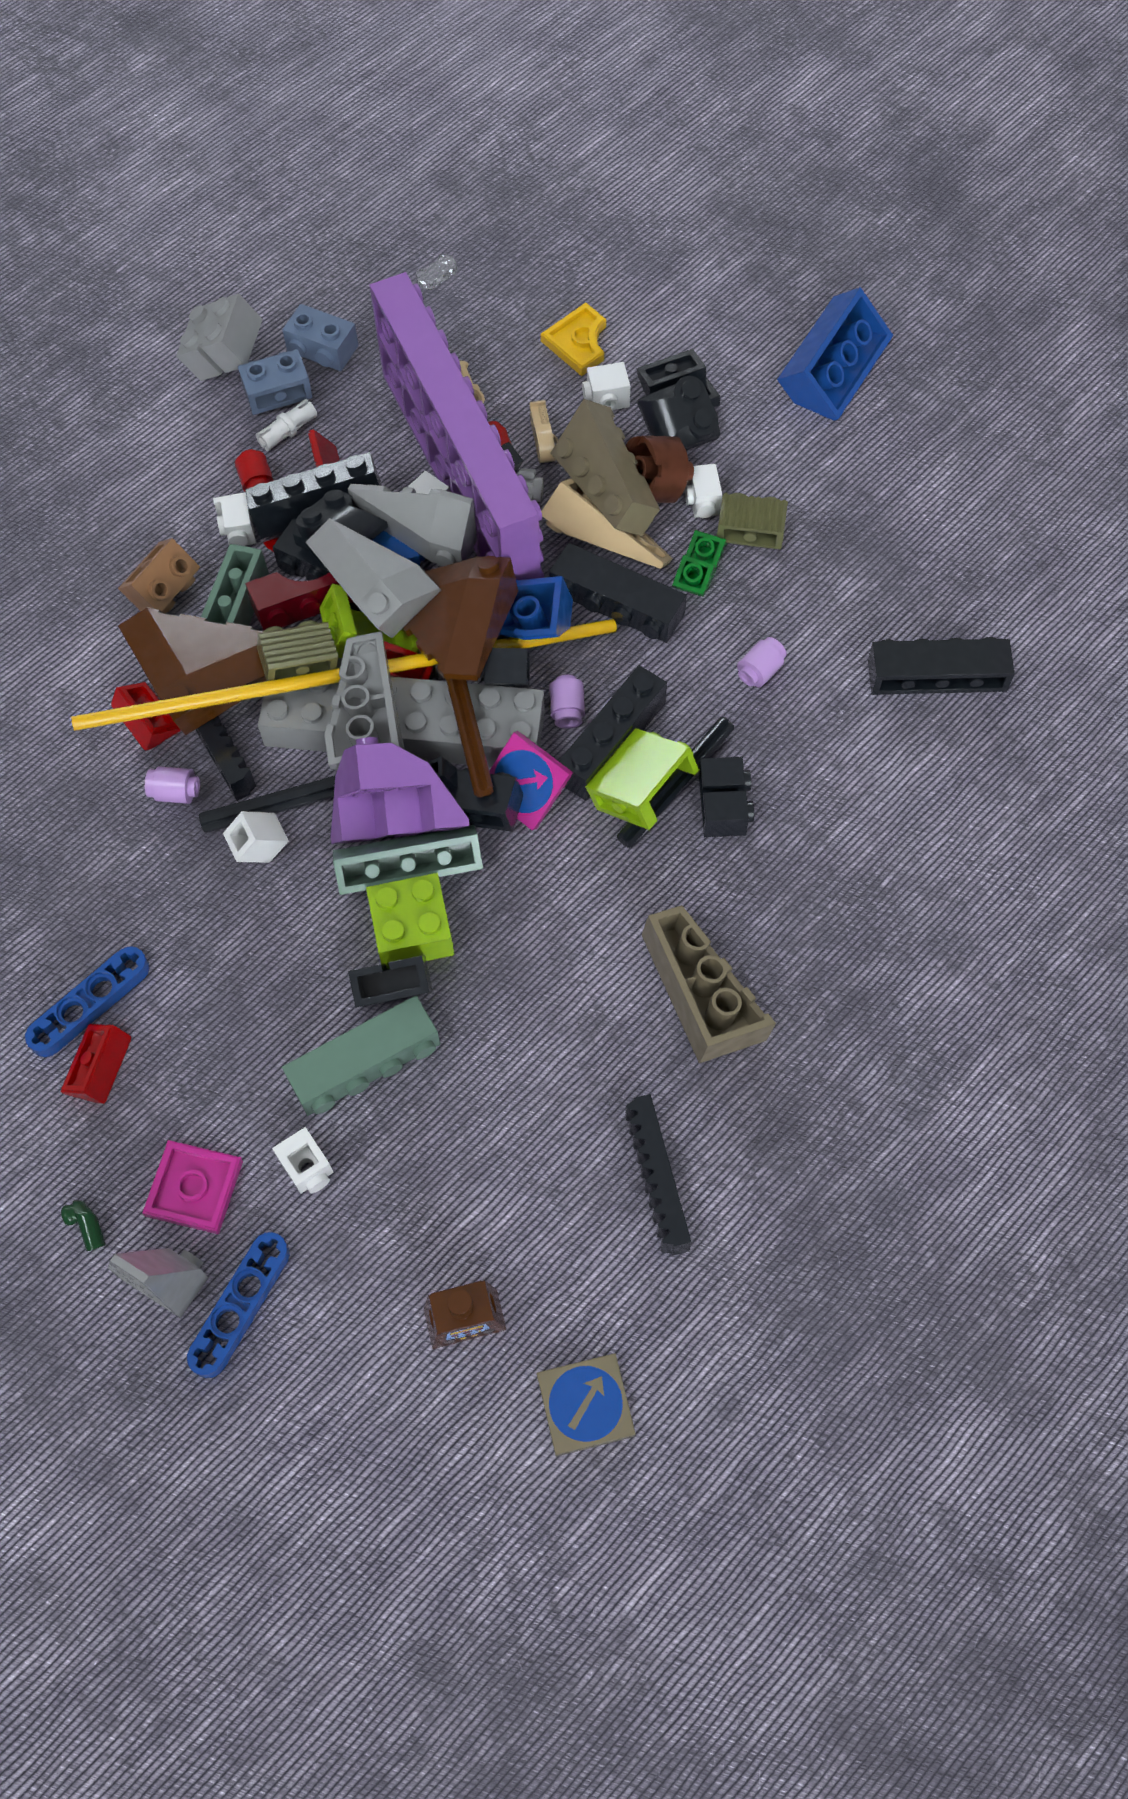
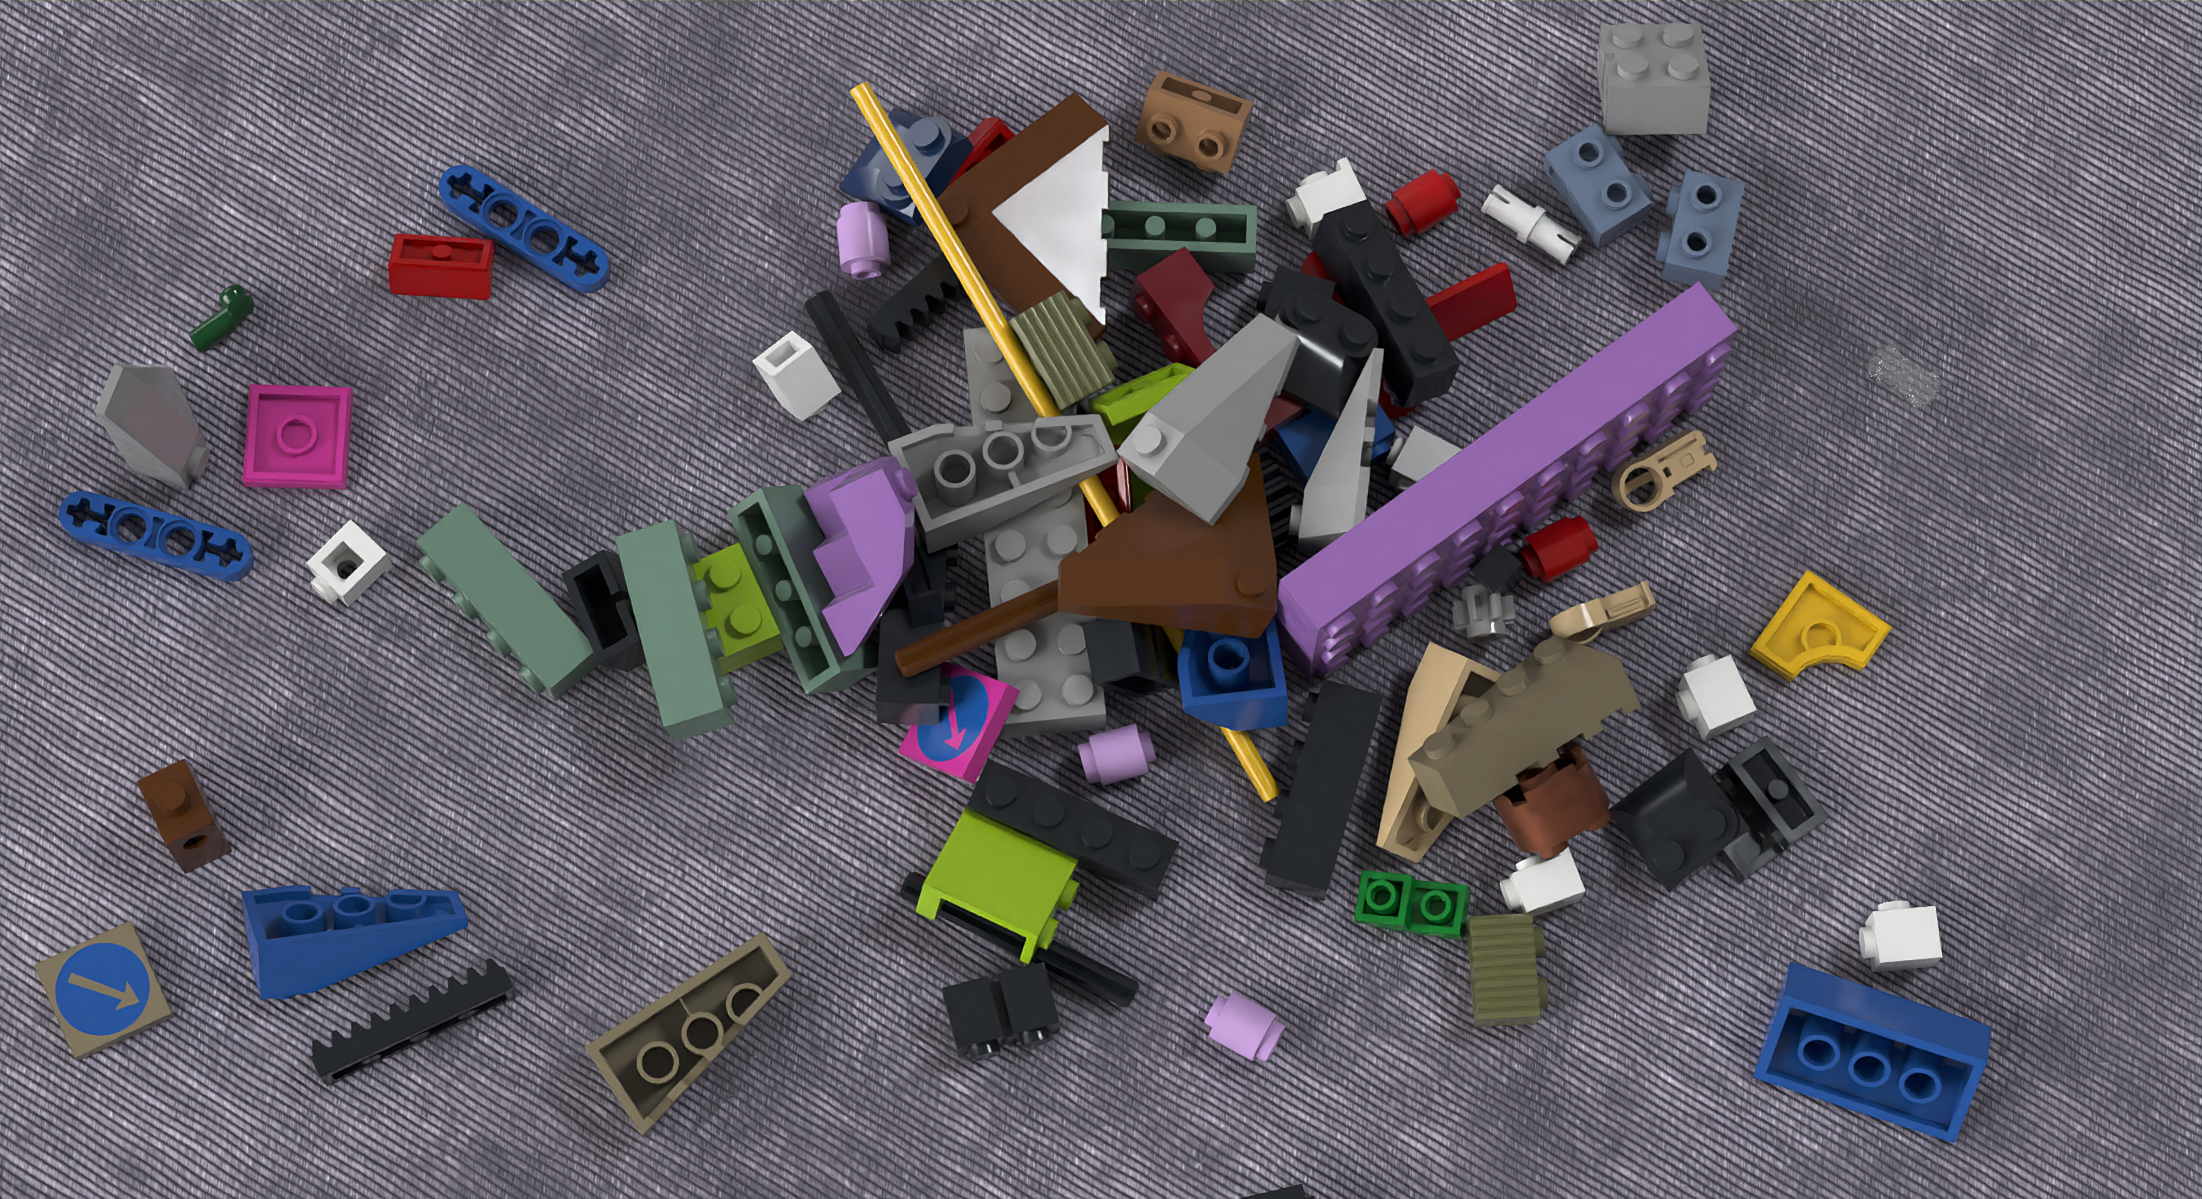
camera: 75 degrees right, 10 degrees up
(128, 751) = (935, 151): none -> dark blue slope
(421, 926) = (675, 629): none -> sand green brick
(583, 1228) = (317, 940): none -> blue wedge
(771, 329) = (1901, 937): none -> white brick

